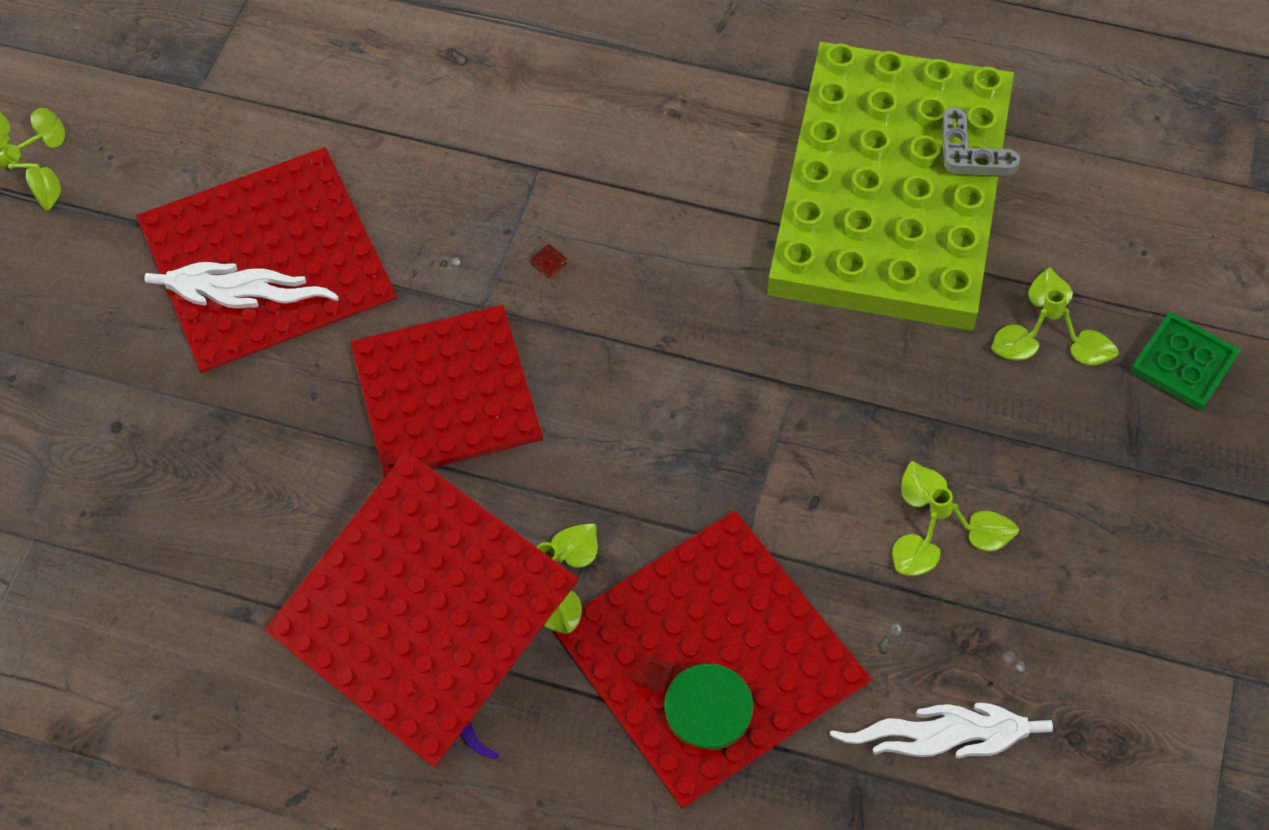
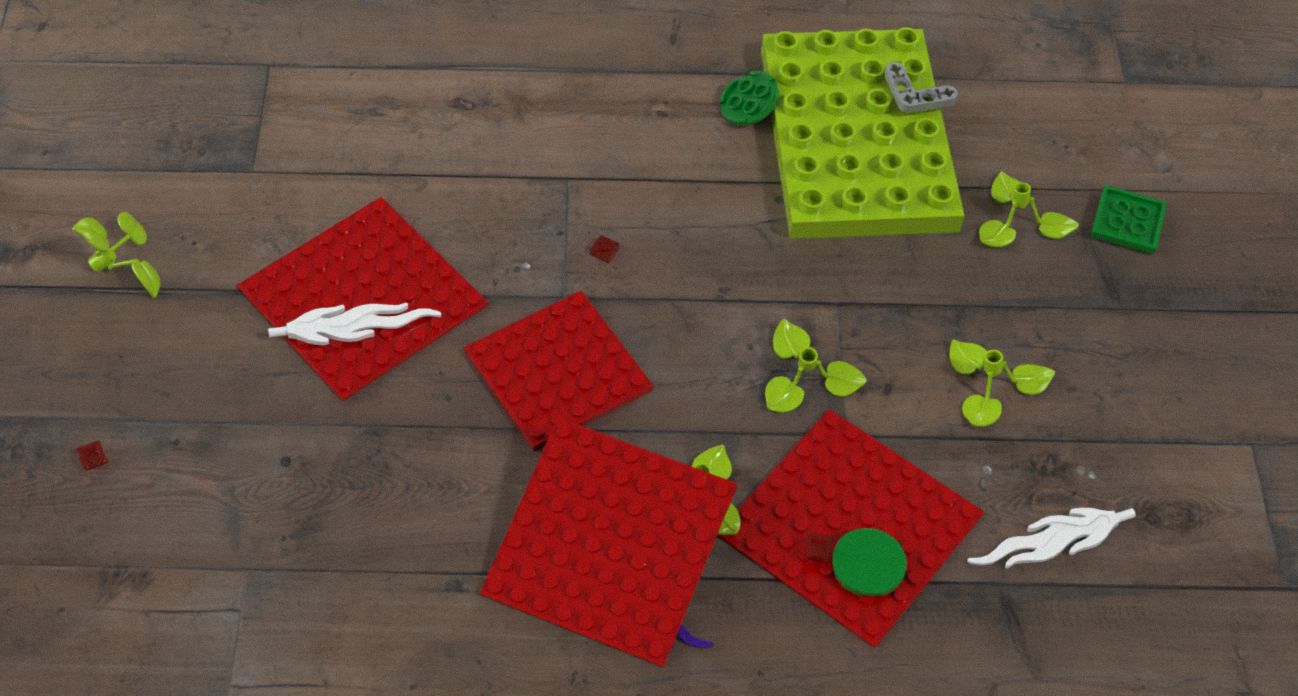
camera: 20 degrees left, 5 degrees down
(719, 422) = (793, 341): none -> lime plant
(777, 116) = (749, 98): none -> green tile

